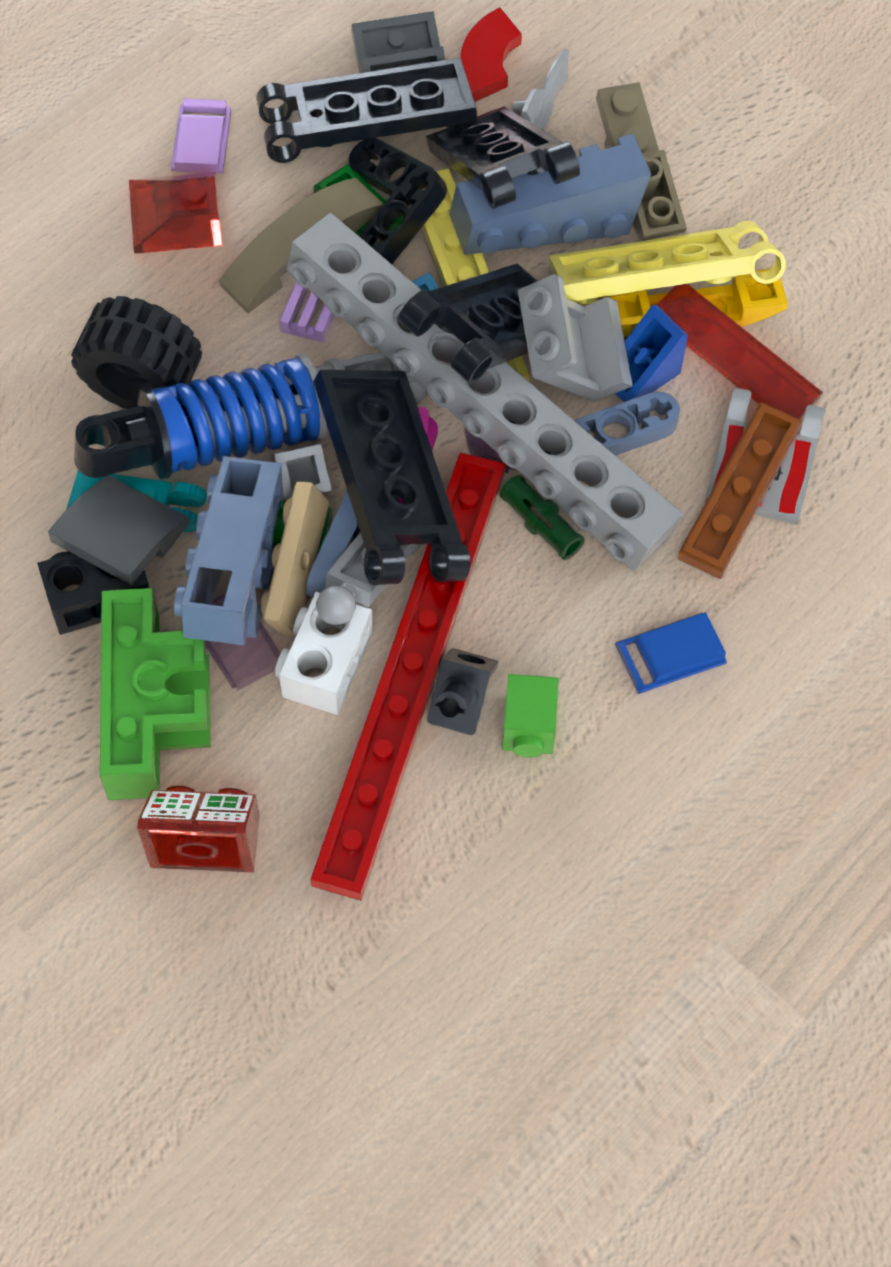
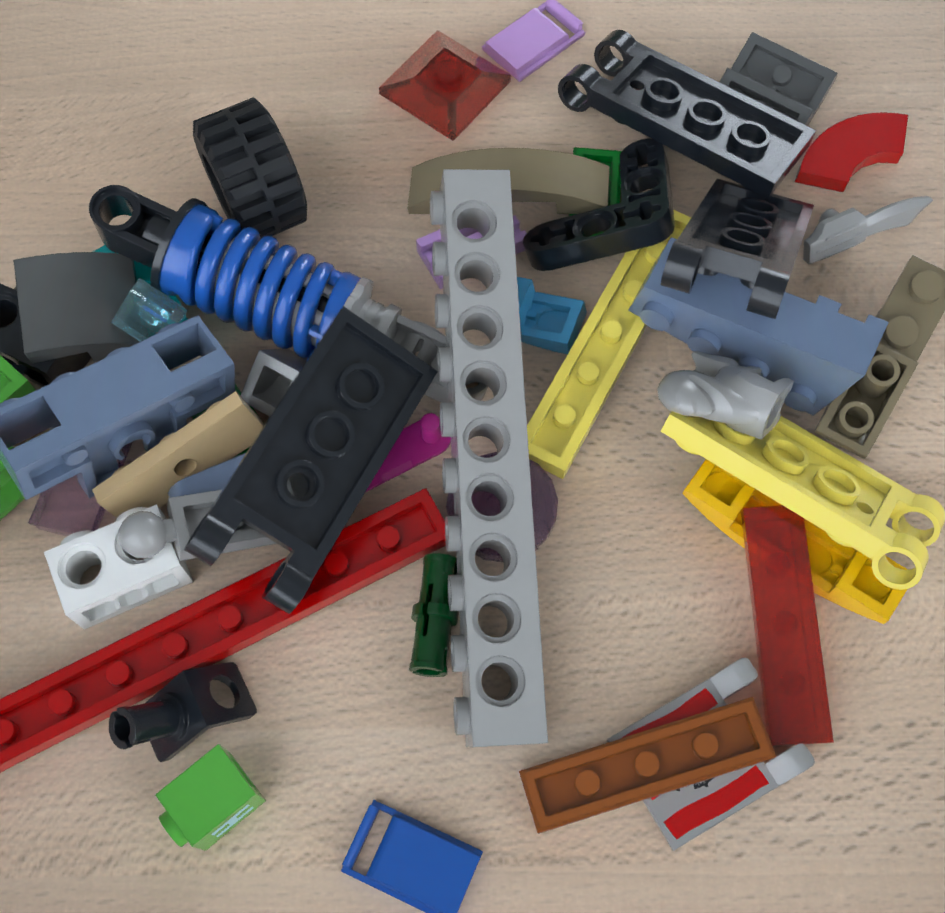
camera: 45 degrees right, 5 degrees up
(180, 490) = (147, 311): none -> clear light blue plate
(480, 313) = (558, 389): black hinge -> none
(574, 343) = (622, 474): light grey panel -> none
(582, 248) = (726, 394): none -> light grey animal
(630, 415) = (585, 569): sand blue beam -> none
(653, 353) = (689, 550): blue slope -> none

